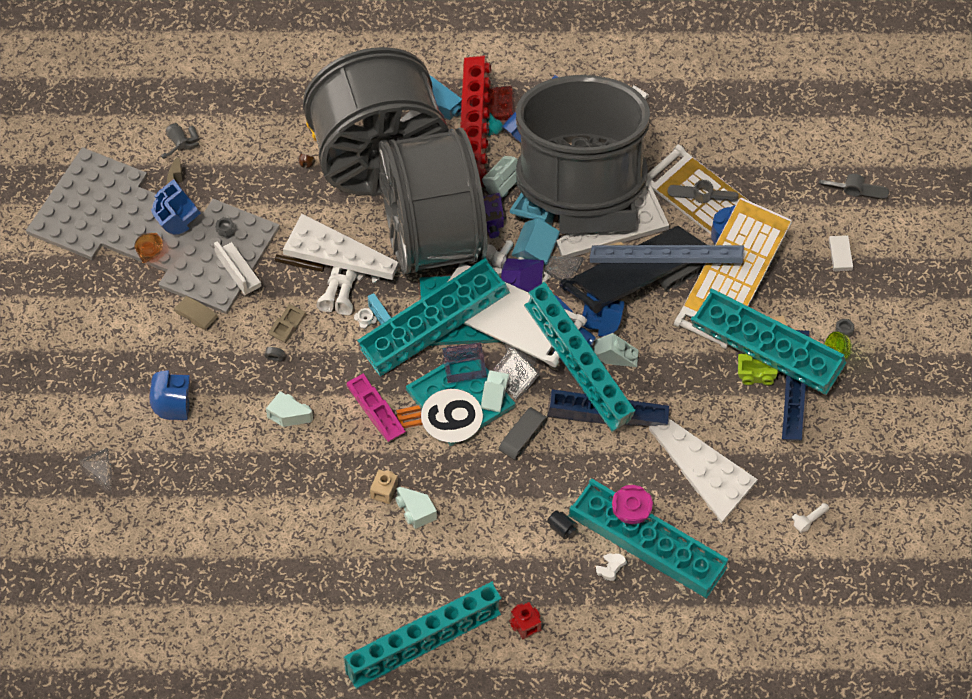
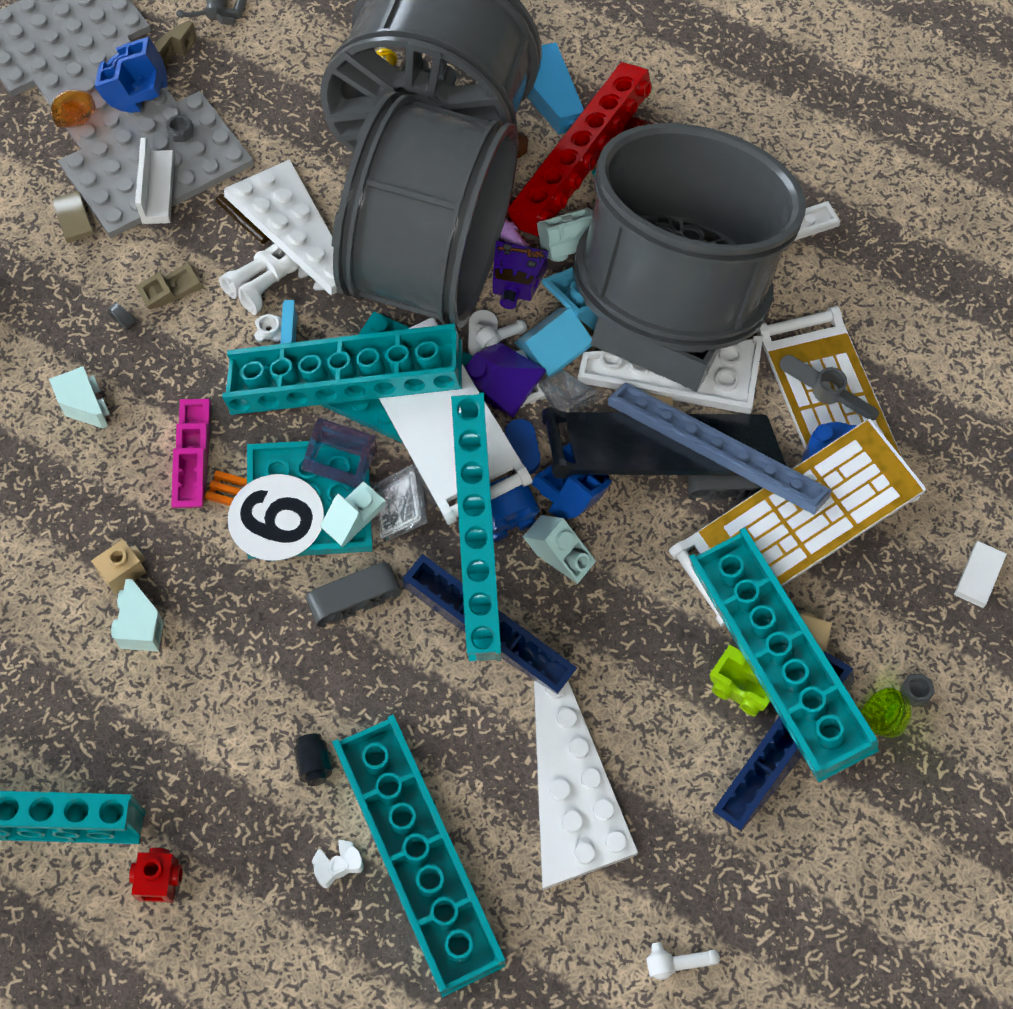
camera: 30 degrees right, 5 degrees up
(632, 504) = (420, 789): dark pink tile -> none

